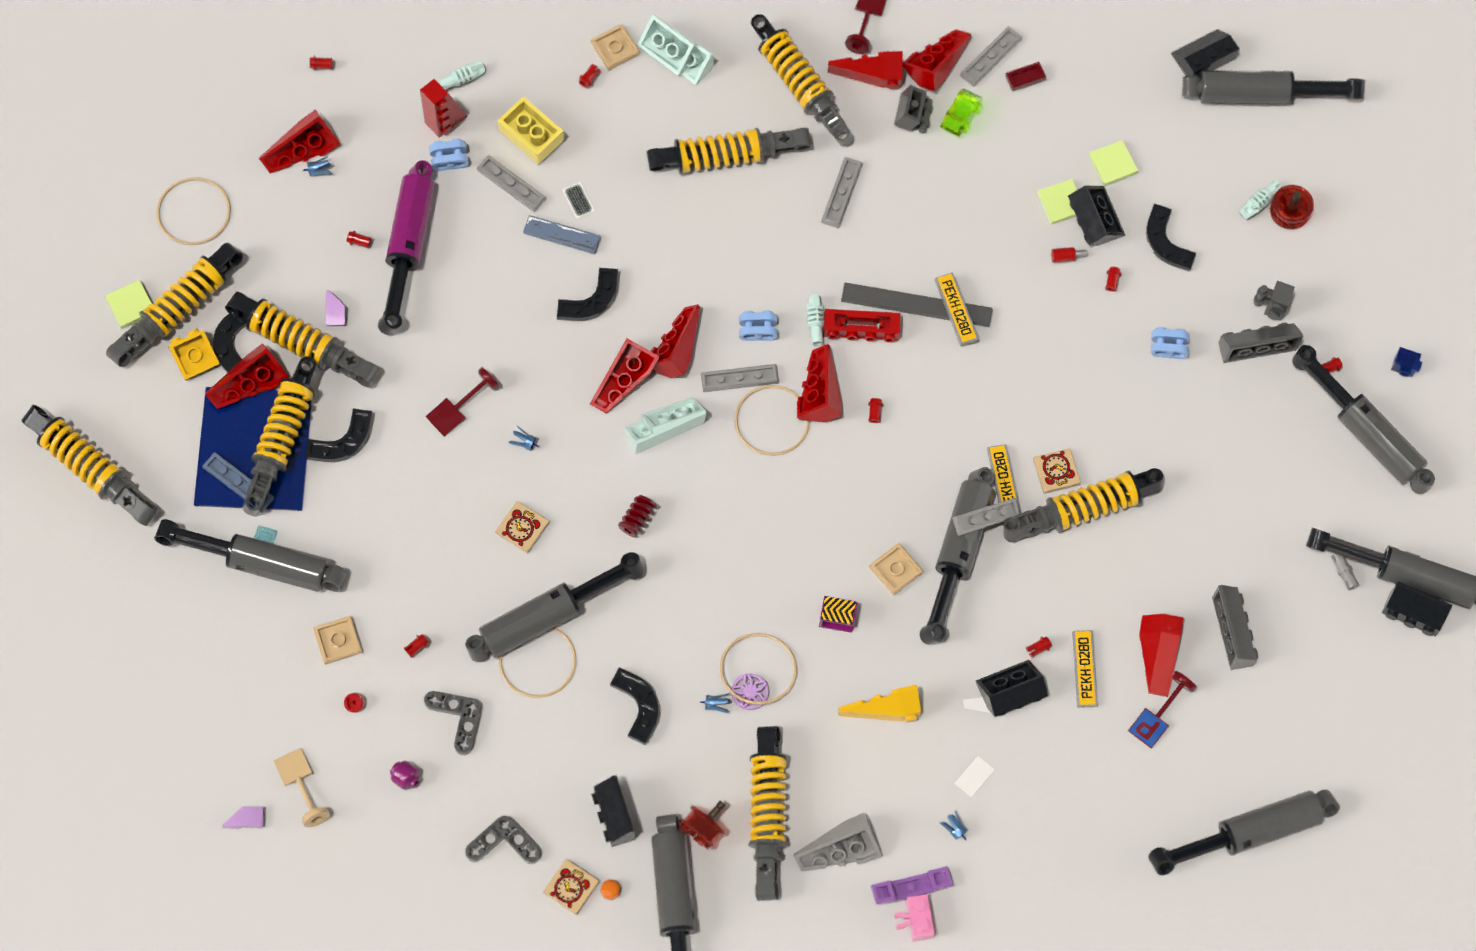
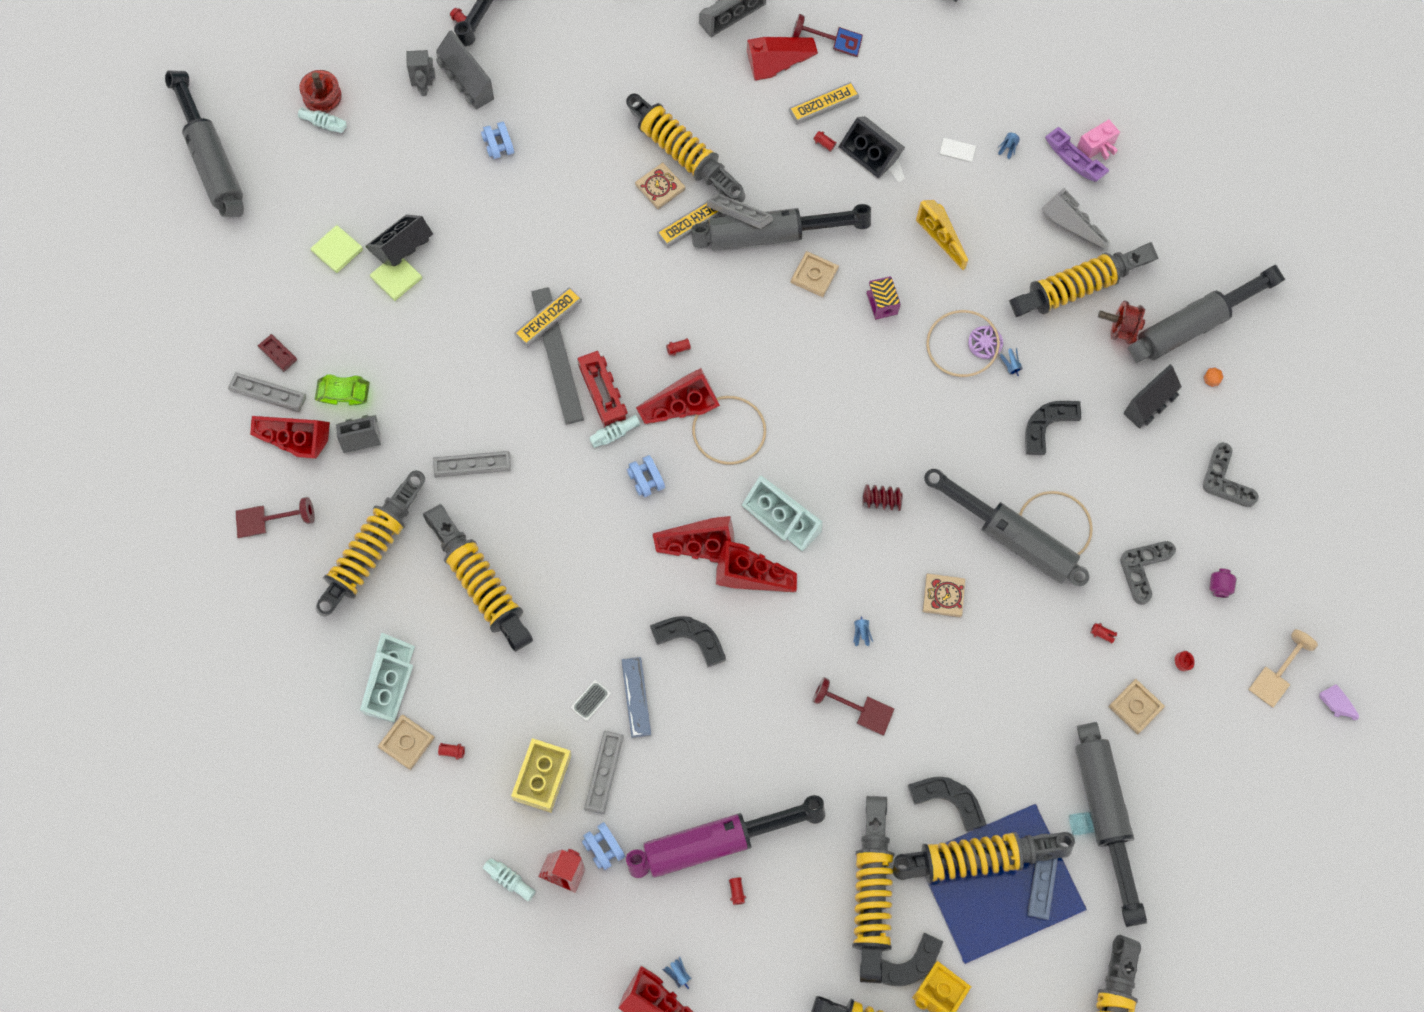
camera: 115 degrees left, 0 degrees up
(252, 375) = (929, 920): red wedge -> none
(334, 310) = (823, 875): lavender slope -> none
(571, 886) = (1229, 408): tan tile -> none
(739, 378) = (703, 473): light grey tile -> none
(880, 70) = (330, 477): red wedge -> none
(1066, 254) = (449, 252): red piece -> none
(1112, 279) = (453, 207): red pin -> none
(1161, 244) = (397, 187): black plate -> none
(1206, 53) = (188, 212): black slope -> none

